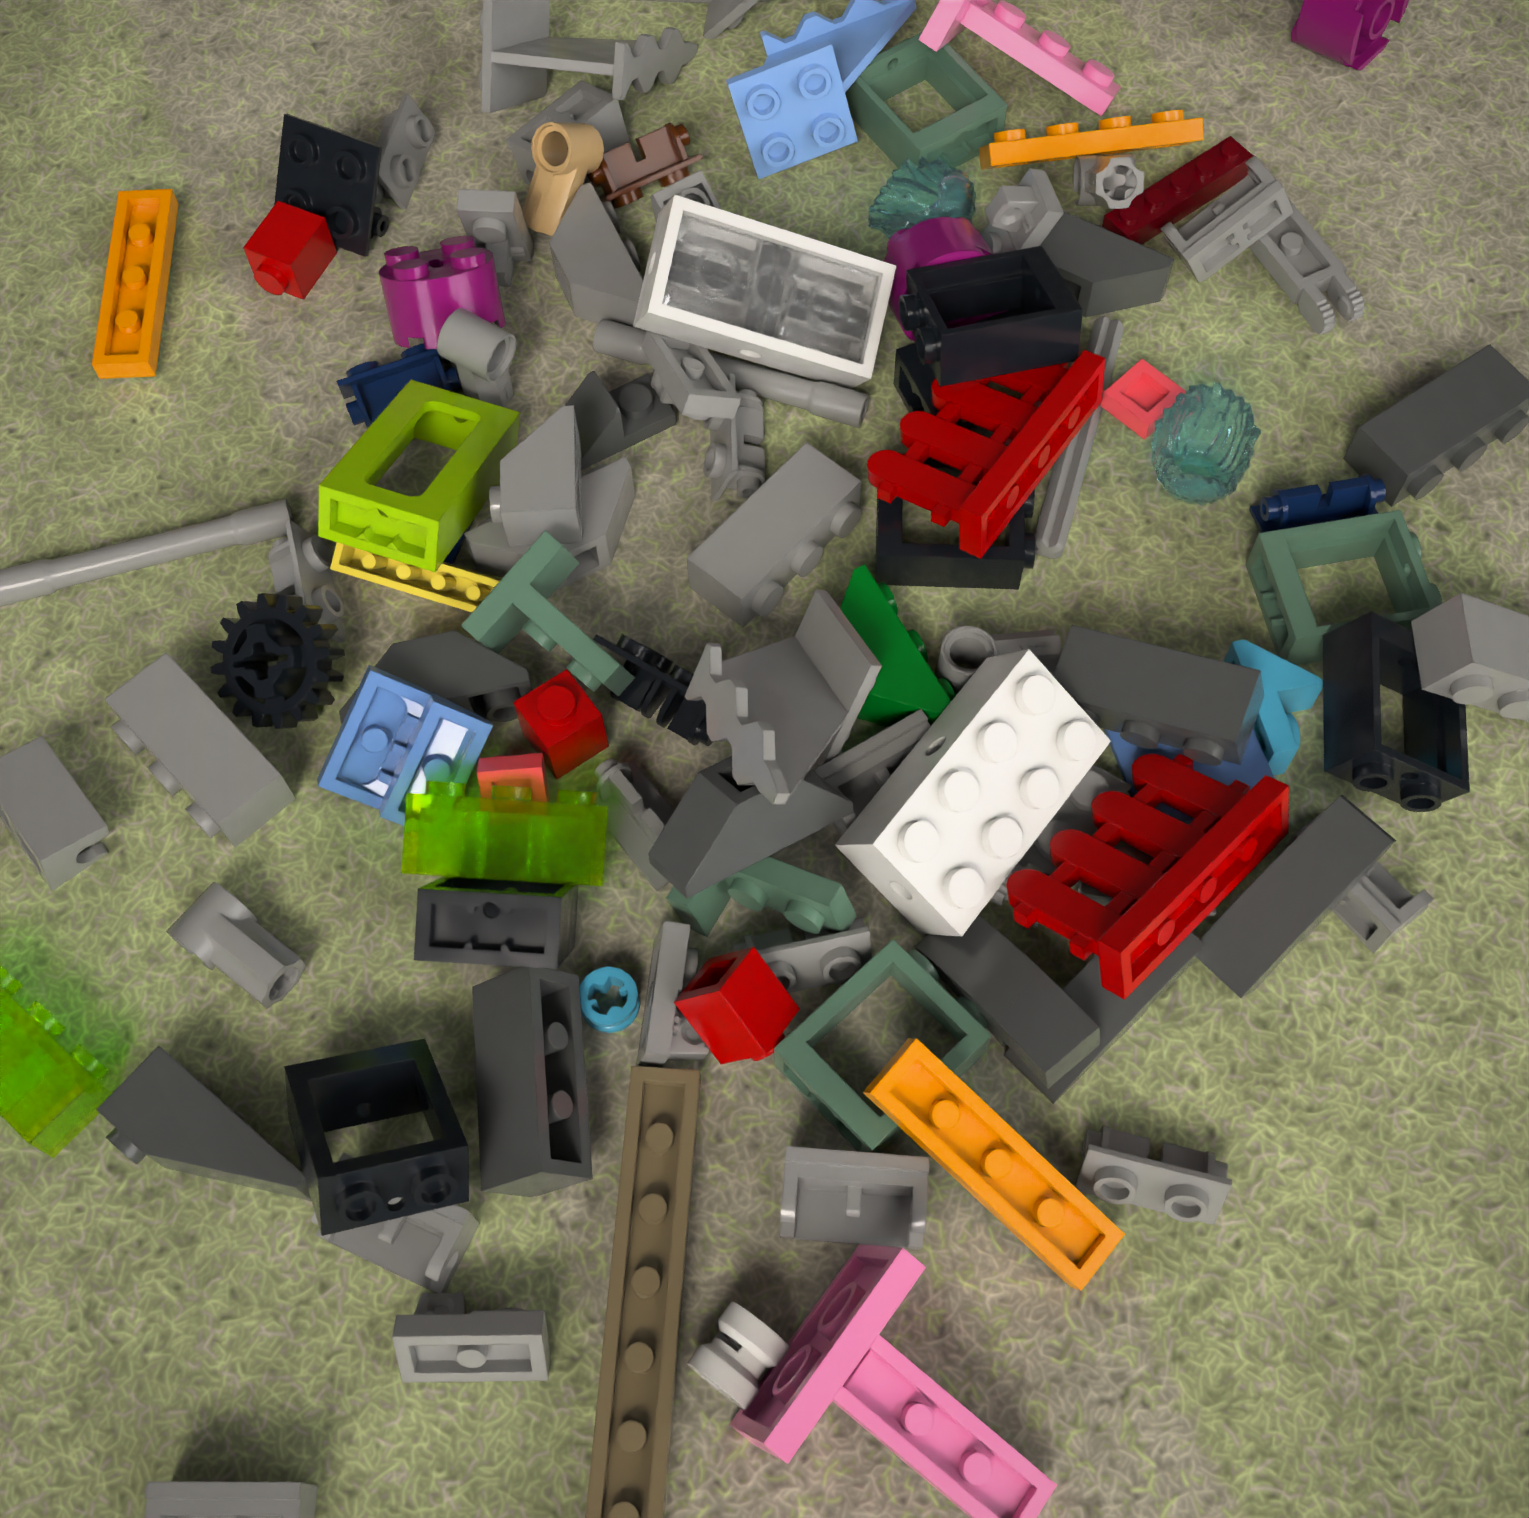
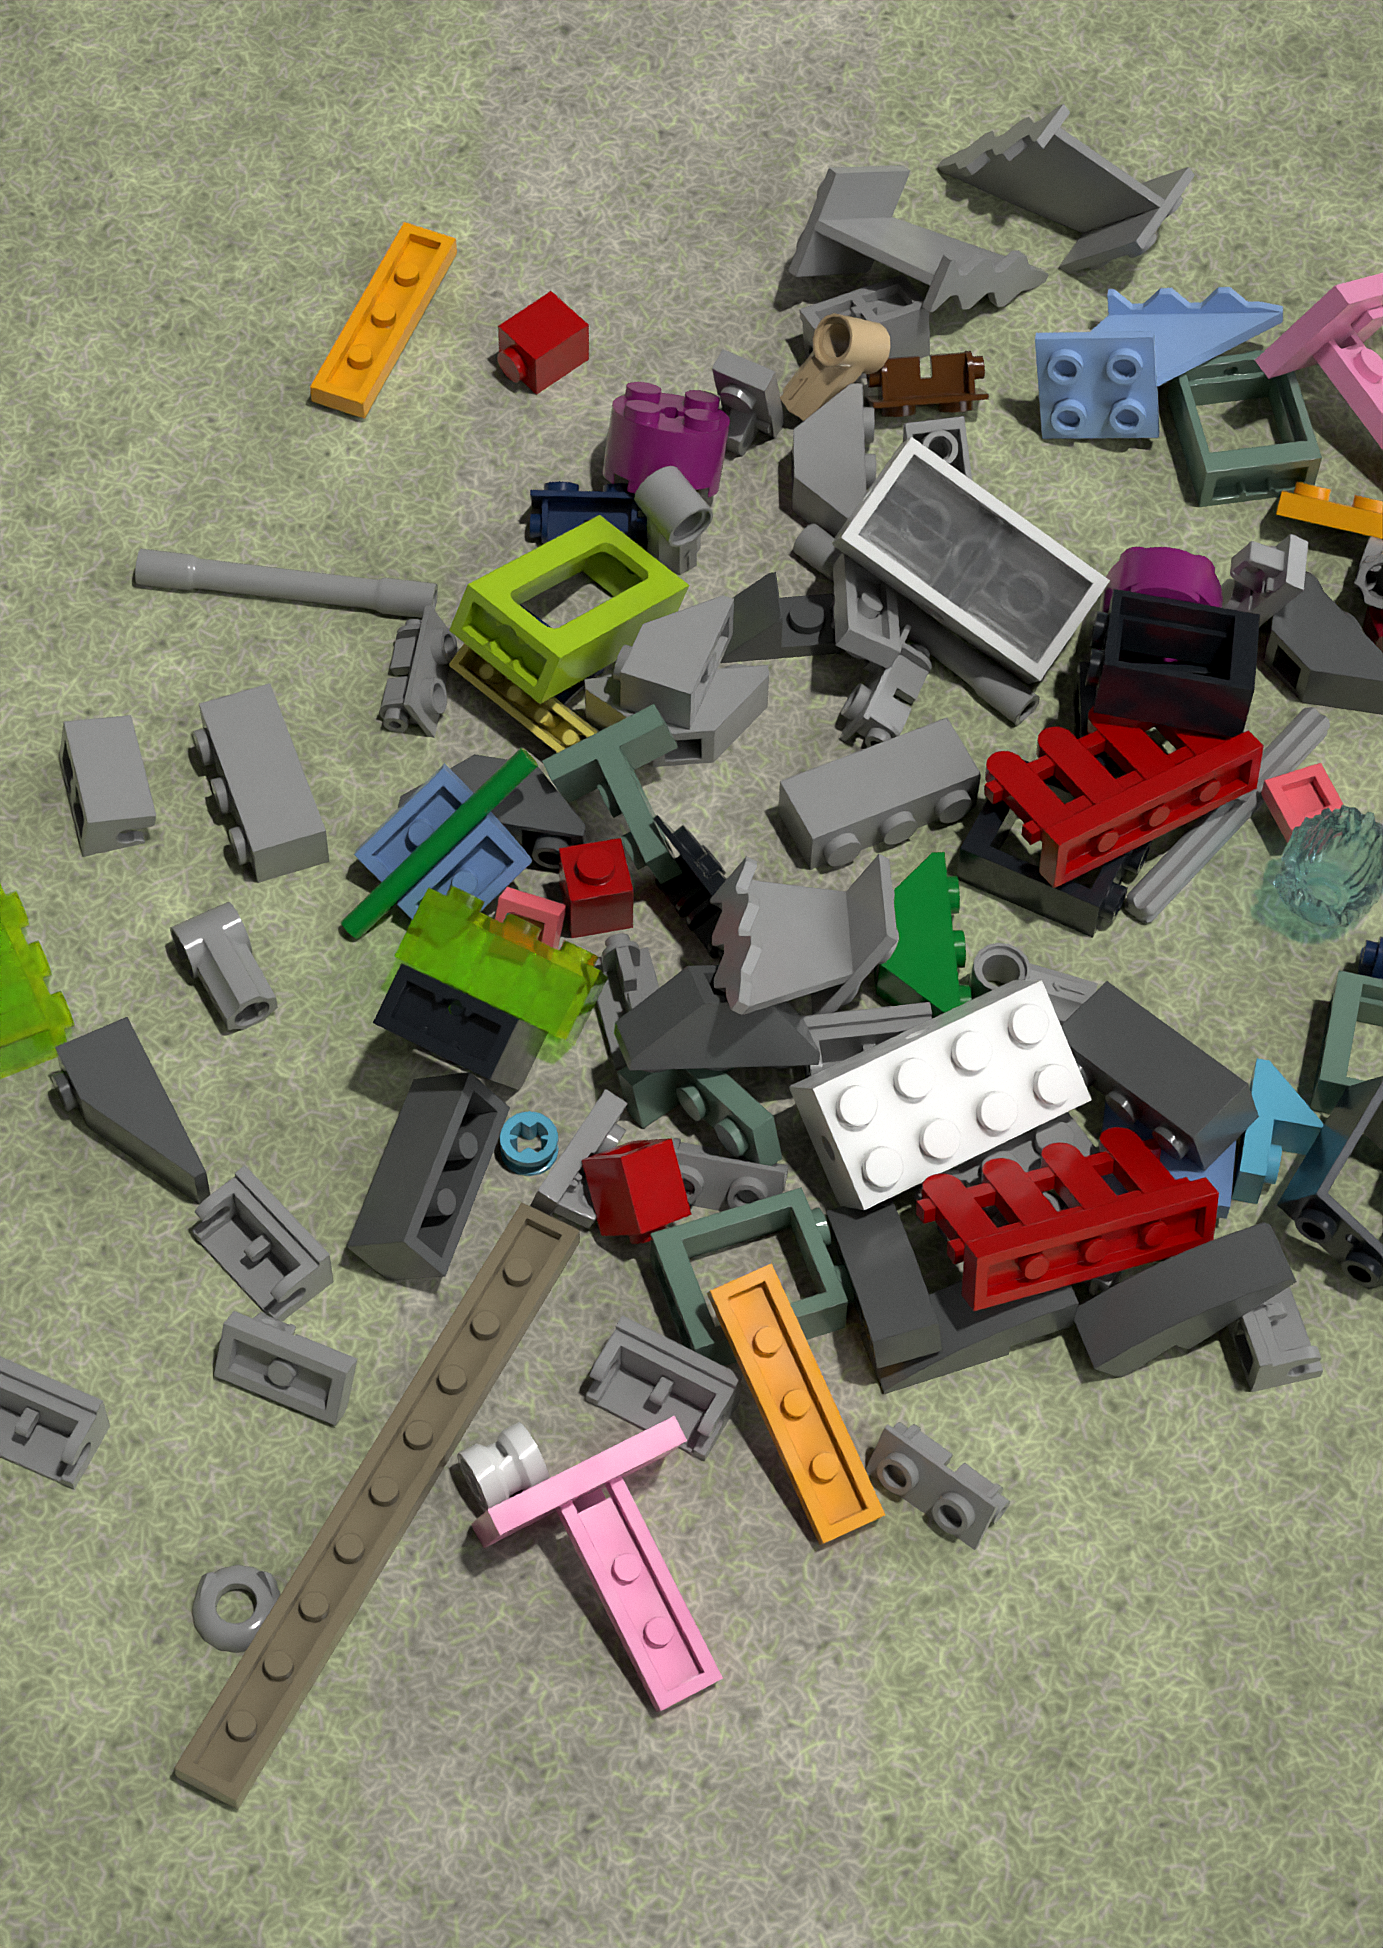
camera: 20 degrees right, 5 degrees down
(271, 630) = (365, 759): black gear -> none
(333, 179) = (610, 290): black hinge -> none
(368, 1089) = (288, 1127): black window -> none
(397, 743) = (439, 843): none -> green bar
(404, 145) = (694, 283): light grey hinge -> none
(922, 194) = (1187, 519): clear light blue hair -> none

